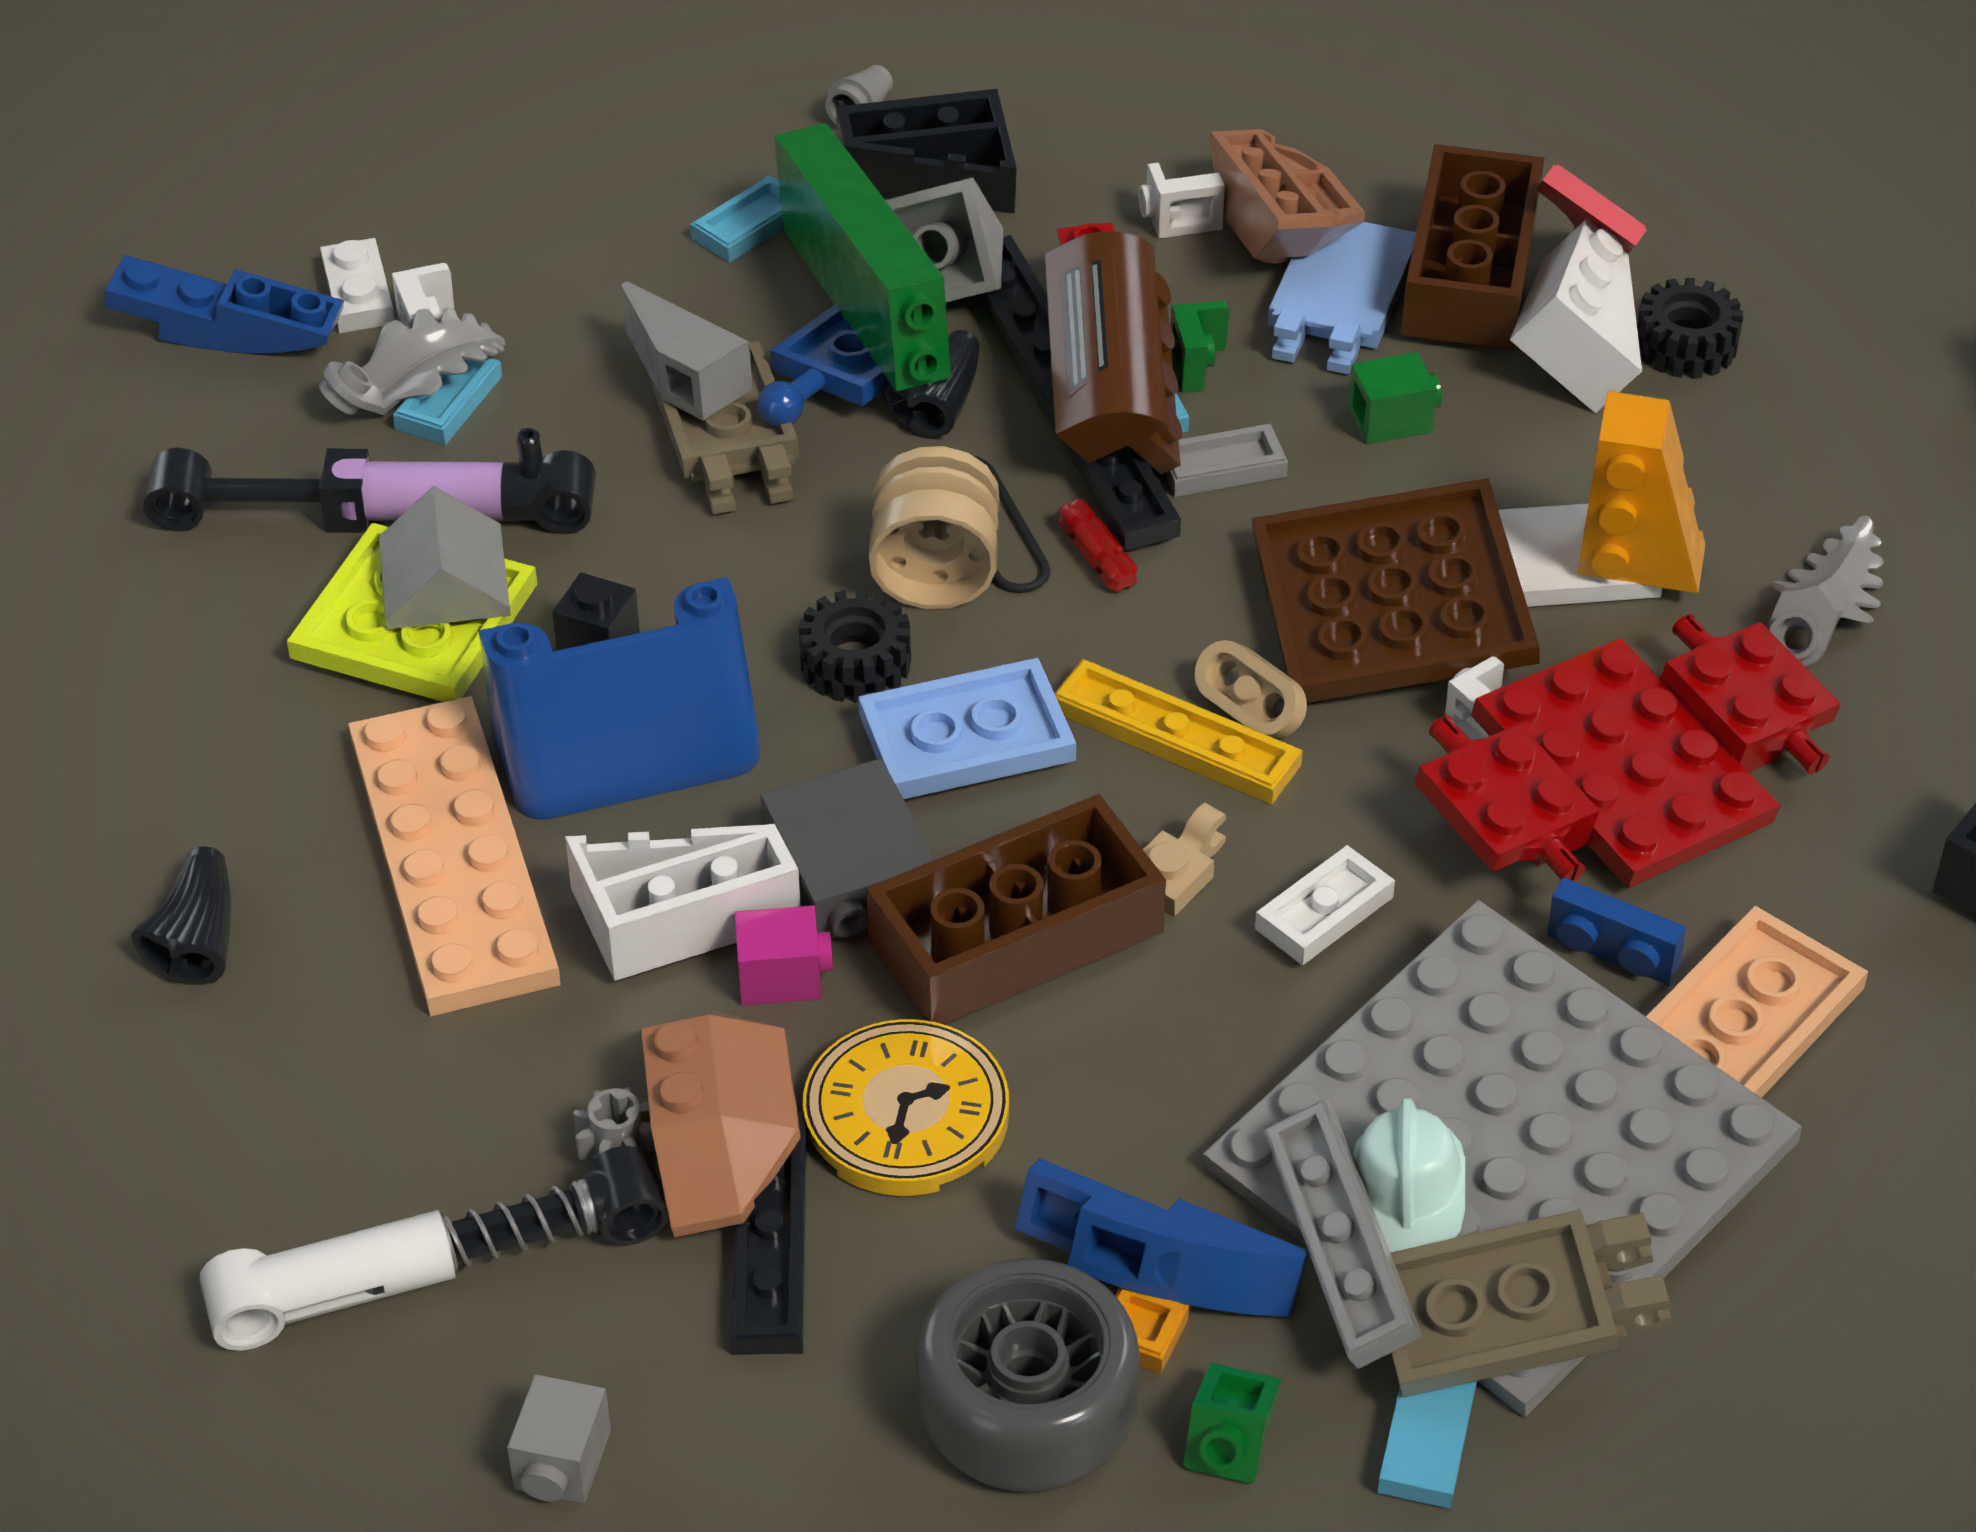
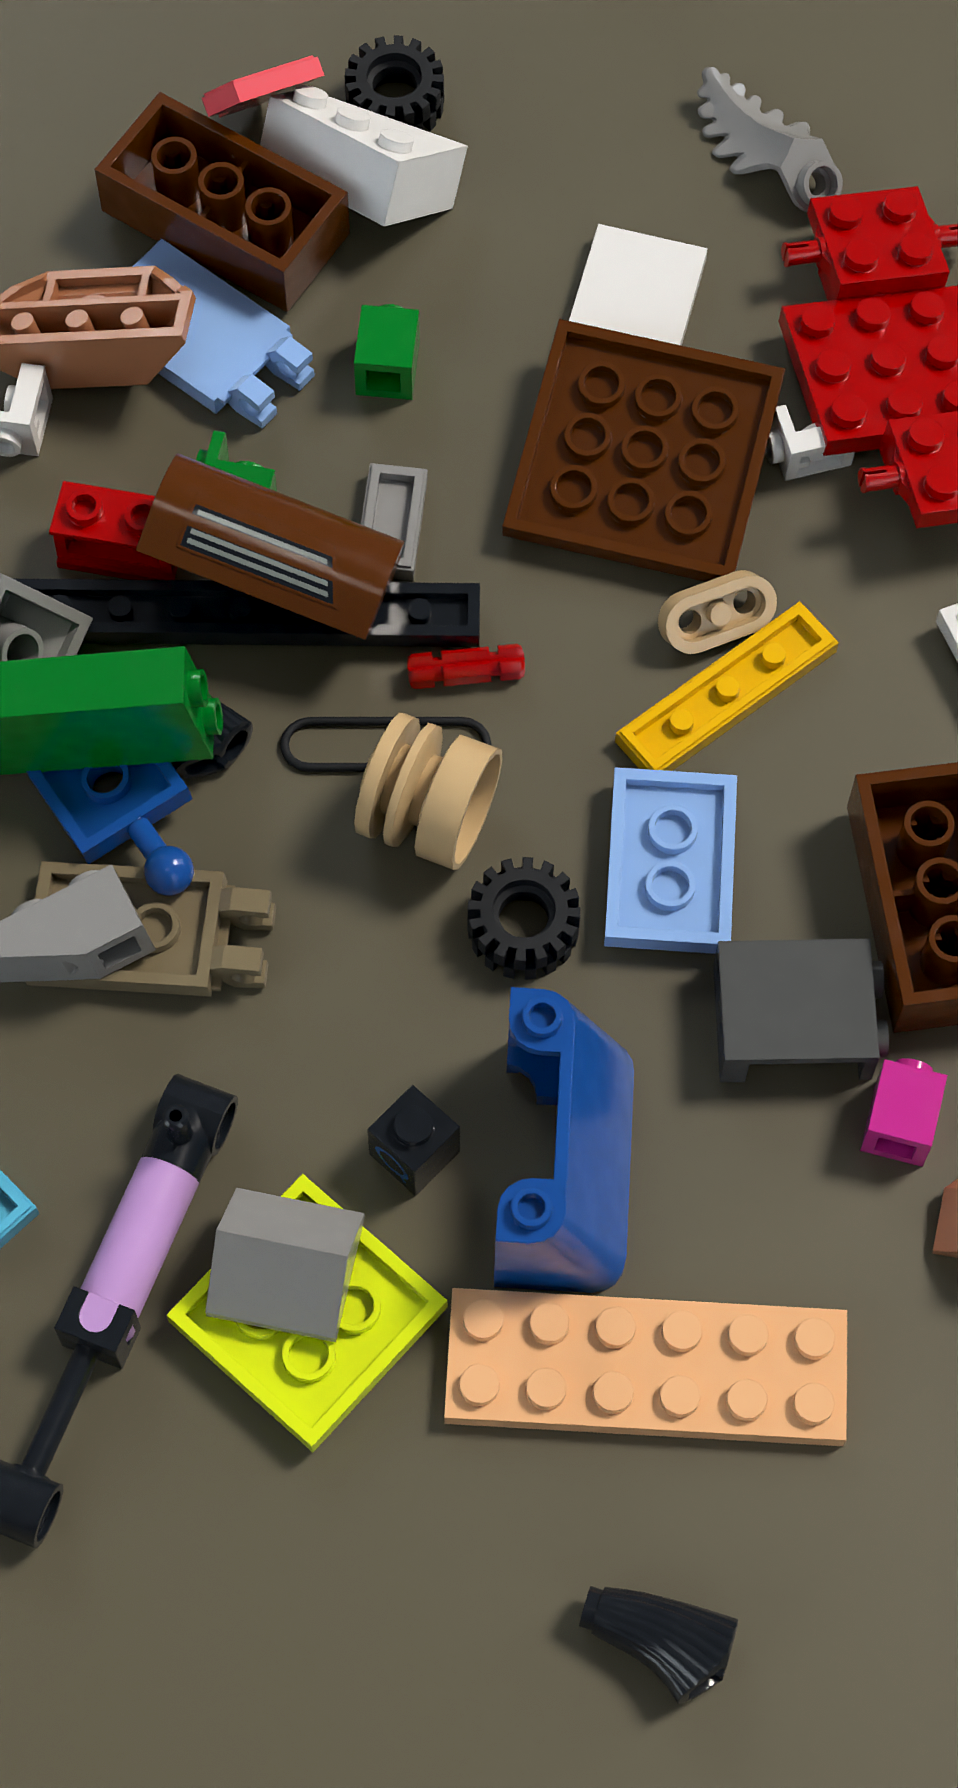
camera: 70 degrees left, 20 degrees up
(677, 896) = (817, 1176): white wedge -> none
(1187, 860) = (888, 745): tan plate -> none
(1639, 500) = (669, 219): light orange wedge -> none

